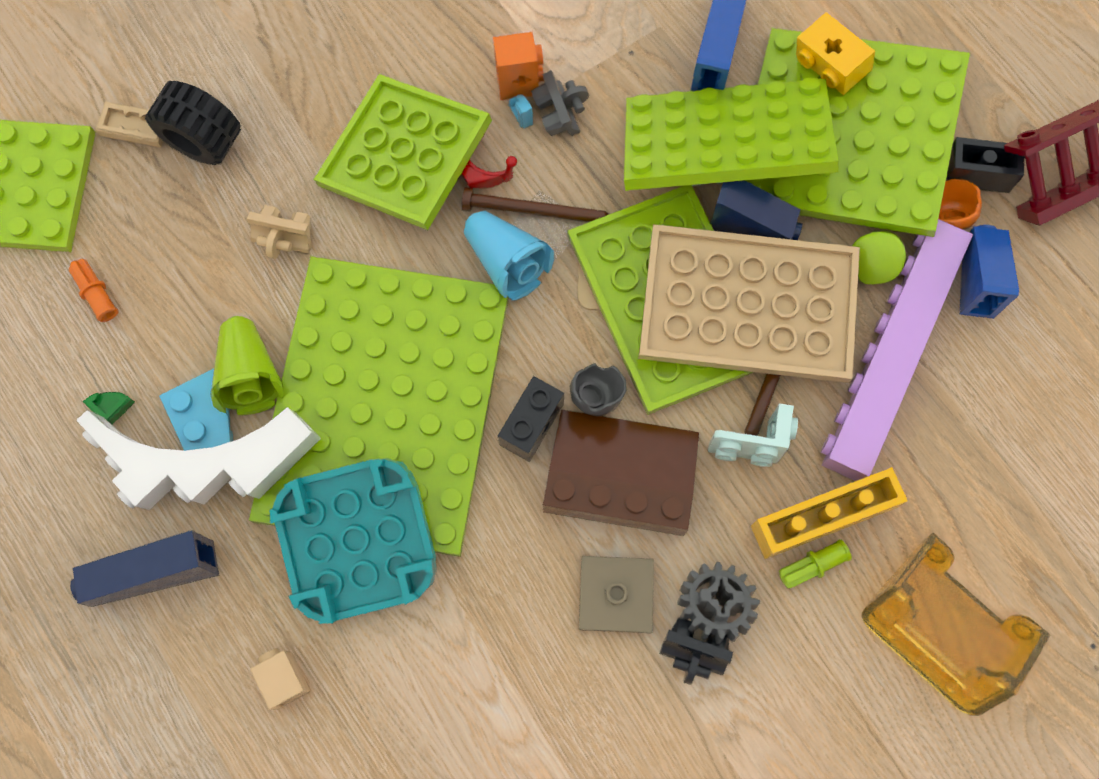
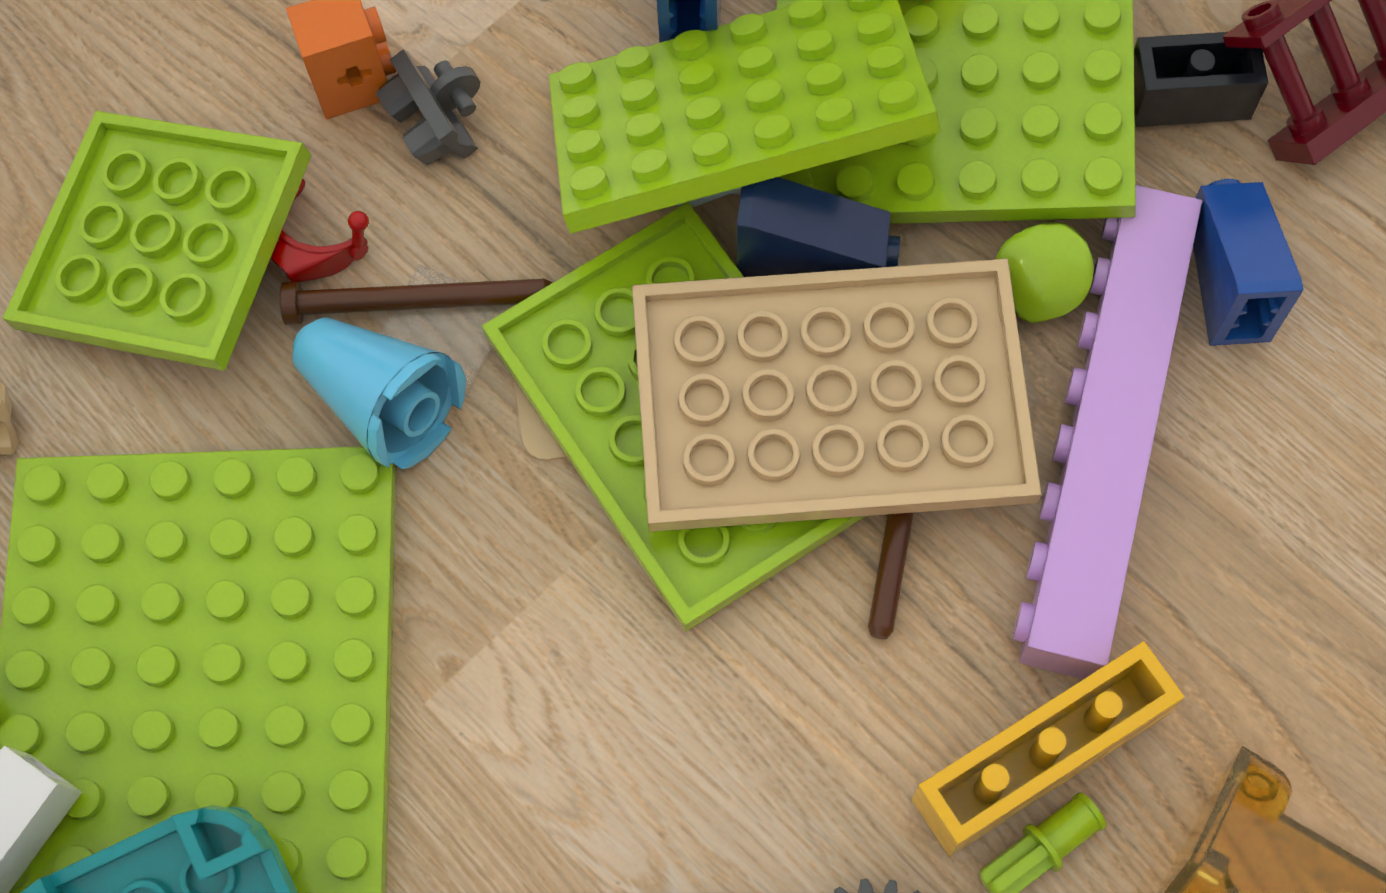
camera: 10 degrees left, 5 degrees down
(522, 110) = (365, 130): medium azure tile -> none
(531, 418) = (471, 680): black brick -> none
(597, 389) = (585, 602): dark grey hair -> none
(622, 473) = (655, 748): reddish brown slope -> none
(761, 450) = (900, 655): light aqua bracket -> none
(960, 203) = (1169, 151): orange hair -> none

